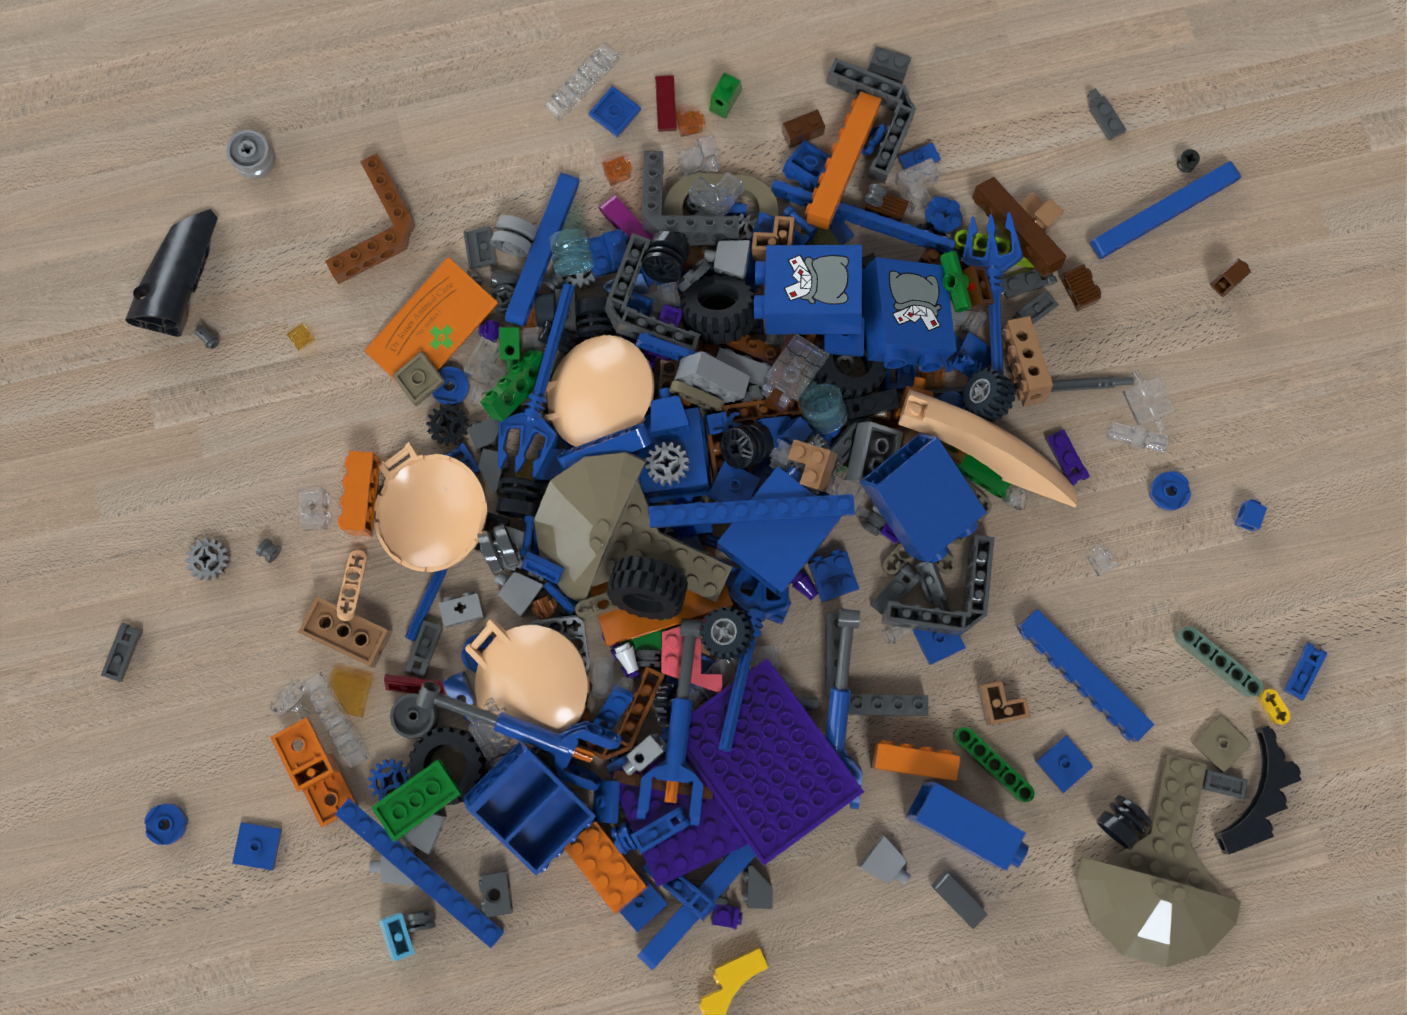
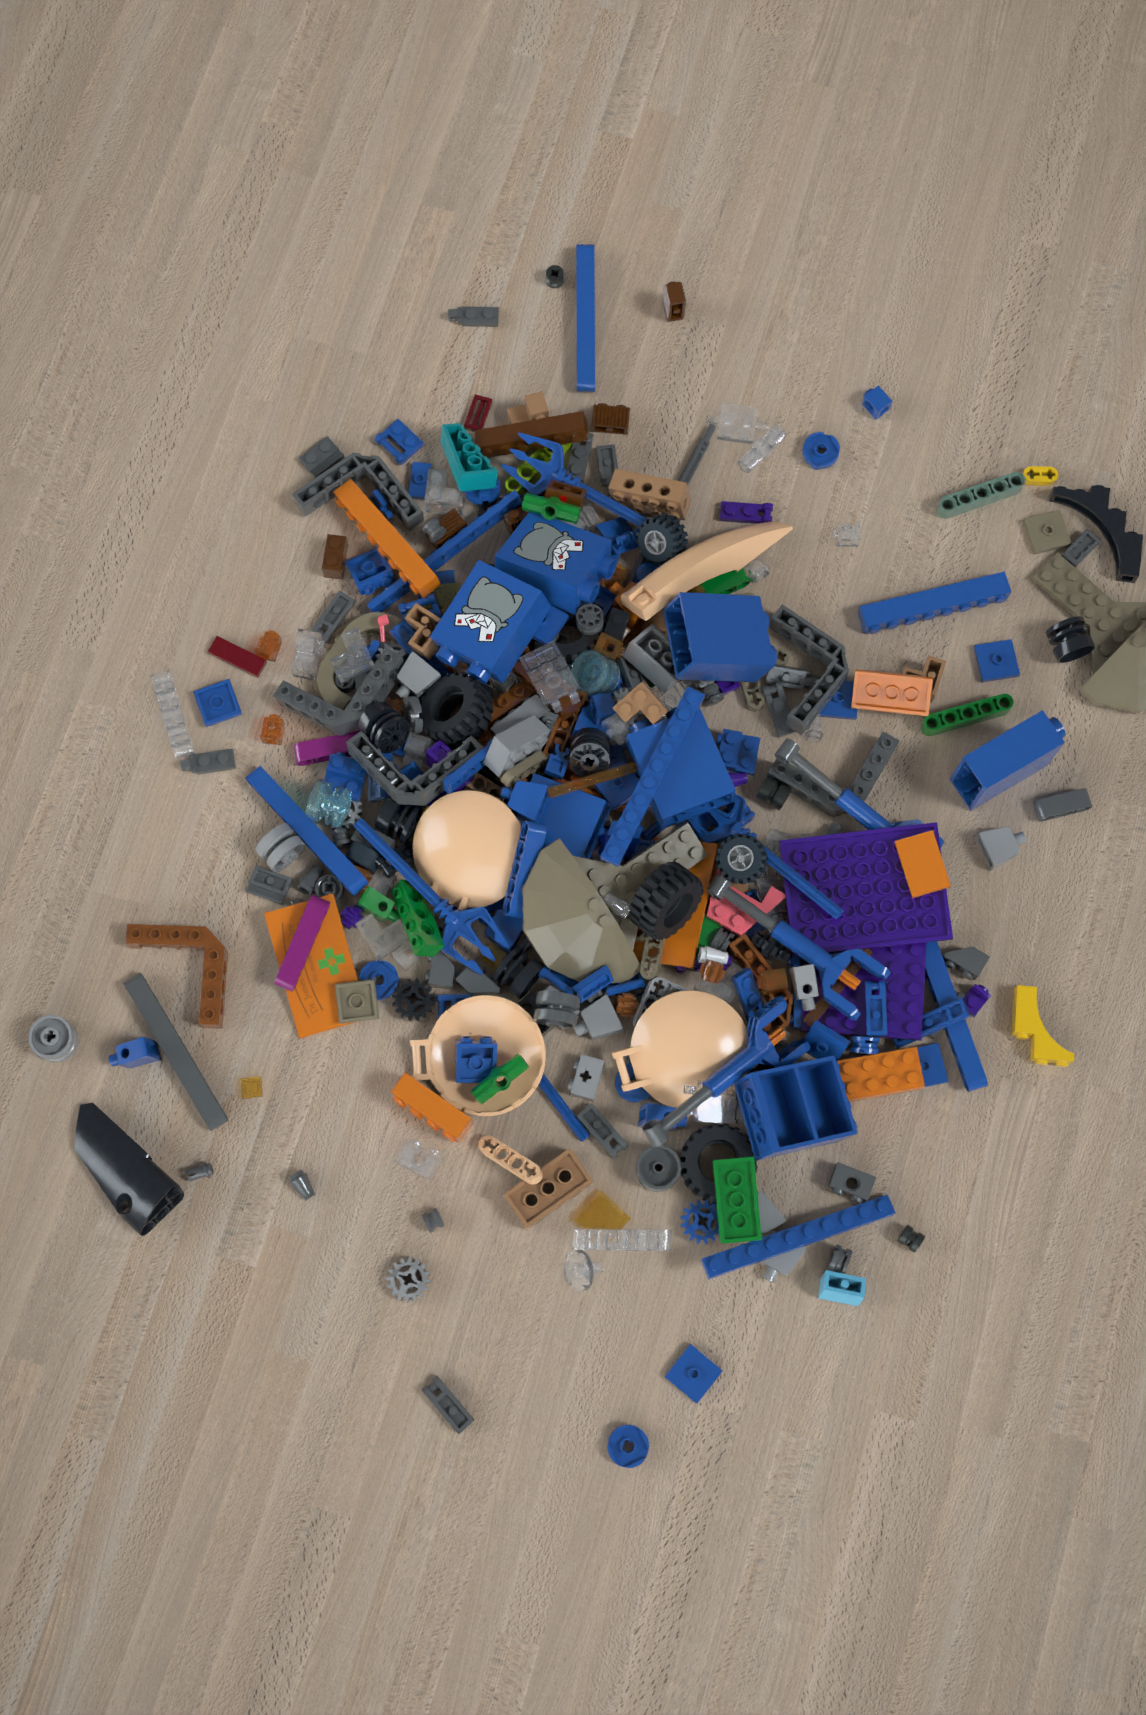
camera: 60 degrees left, 5 degrees down
(240, 425) = (302, 1185): none -> dark grey cone
(271, 223) = (135, 1053): none -> blue torso
(295, 257) = (176, 1051): none -> dark grey beam
(312, 770) = (657, 1282): orange bracket -> none
(407, 684) = (628, 1157): dark red tile -> none
(408, 533) = (509, 1070): none -> green piece
(422, 506) = (474, 1059): none -> blue plate
(439, 302) = (302, 943): none -> magenta beam
(475, 974) = (911, 1238): none -> pearl dark grey wheel
(560, 137) = (210, 762): none -> dark grey hinge
(610, 664) = (712, 971): none -> dark orange gear
(619, 547) = (617, 905): none -> clear cone
(631, 723) = (772, 981): none -> clear orange brick
(675, 463) = (571, 816): light grey gear -> none
(719, 460) = (591, 780): none -> clear orange axle
(727, 92) = (262, 600): green torso -> none
(748, 159) = (334, 615): none -> dark grey plate
(765, 201) = (382, 621): none -> coral hand
(813, 629) = (772, 792): none -> pearl dark grey wheel
(816, 800) = (922, 864): none -> orange tile
(852, 400) = (603, 643): none -> clear orange brick
(870, 374) = (589, 620): none -> dark grey wheel
(914, 761) = (930, 774): orange brick -> none
(950, 123) = (403, 438): none -> blue plate
(957, 186) = (466, 462): none -> teal wedge
(969, 683) = (892, 692): none -> orange plate
(998, 175) = (467, 425): none -> dark red tile
(1305, 672) = (1025, 436): blue plate -> none

